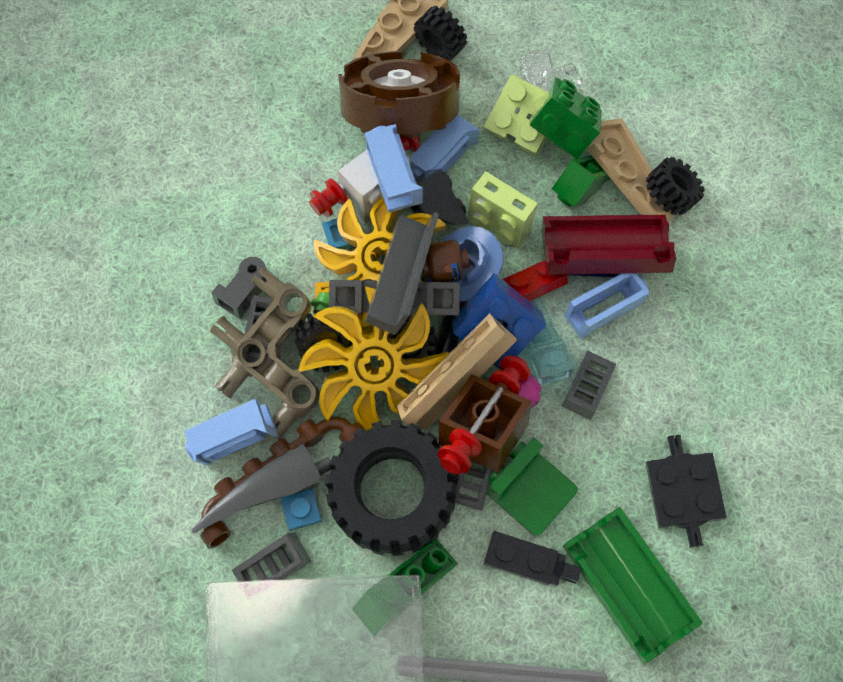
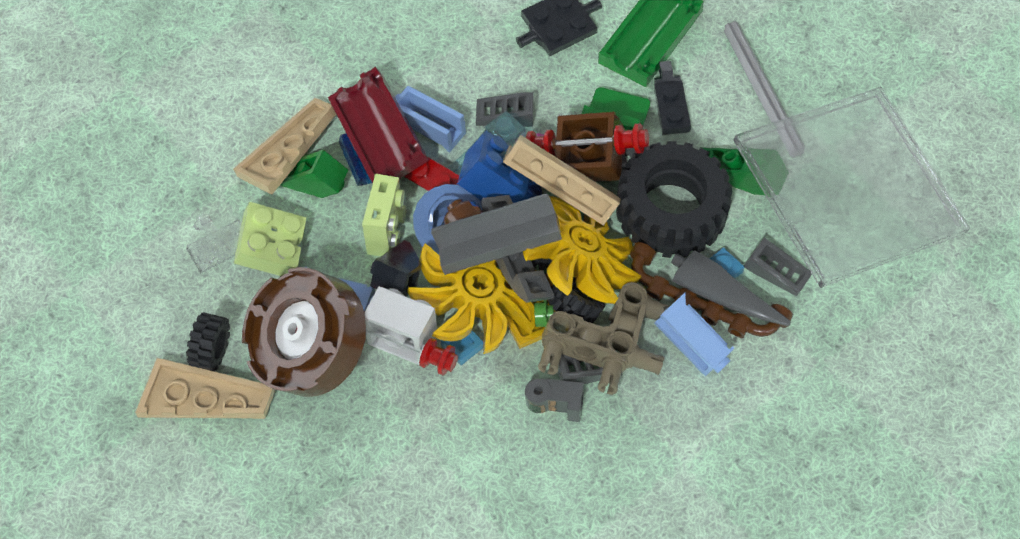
camera: 110 degrees left, 10 degrees down
(392, 168) = (401, 286): light blue window -> none
(568, 118) = (269, 183): green bracket -> none
(675, 186) = (292, 102): black tyre -> none

